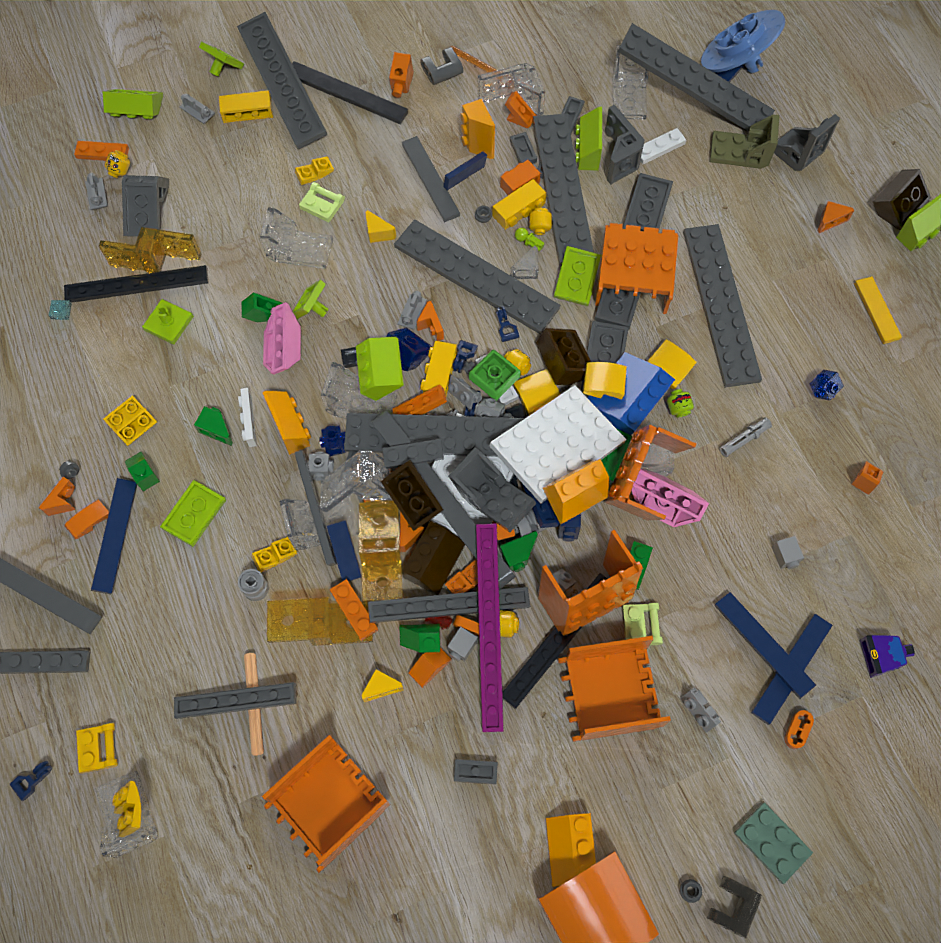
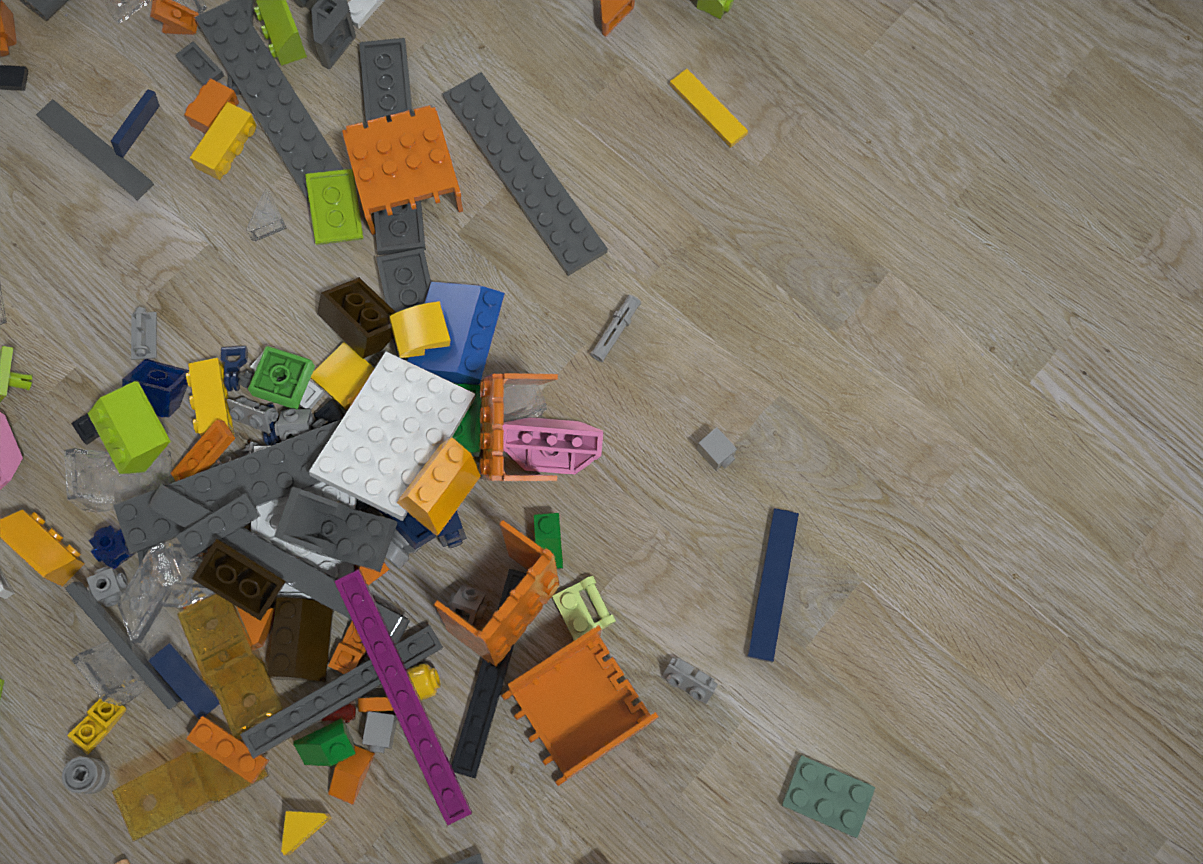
camera: 30 degrees left, 5 degrees up
(379, 229) = (54, 244): yellow slope -> none
(430, 320) = (169, 337): orange slope -> none
(477, 276) = (207, 255): dark grey plate -> none
(478, 128) = (127, 62): light orange slope -> none
(483, 210) = (180, 166): dark grey plate -> none
(500, 314) = (258, 294): dark blue piece -> none
(518, 552) = (402, 586): green slope -> none
(519, 360) = (305, 346): yellow head -> none
(522, 235) = (244, 180): lime axle -> none
(540, 221) = (259, 153): yellow head -> none
(673, 361) = (493, 270): yellow slope -> none
(680, 403) = (522, 319): lime head -> none
(765, 645) = (732, 571): dark blue tile -> none
(803, 731) = (801, 652): orange beam -> none
(826, 384) = (684, 226): clear blue brick -> none
(868, 478) = (773, 319): orange slope -> none
(884, 653) = (868, 521): dark purple torso -> none

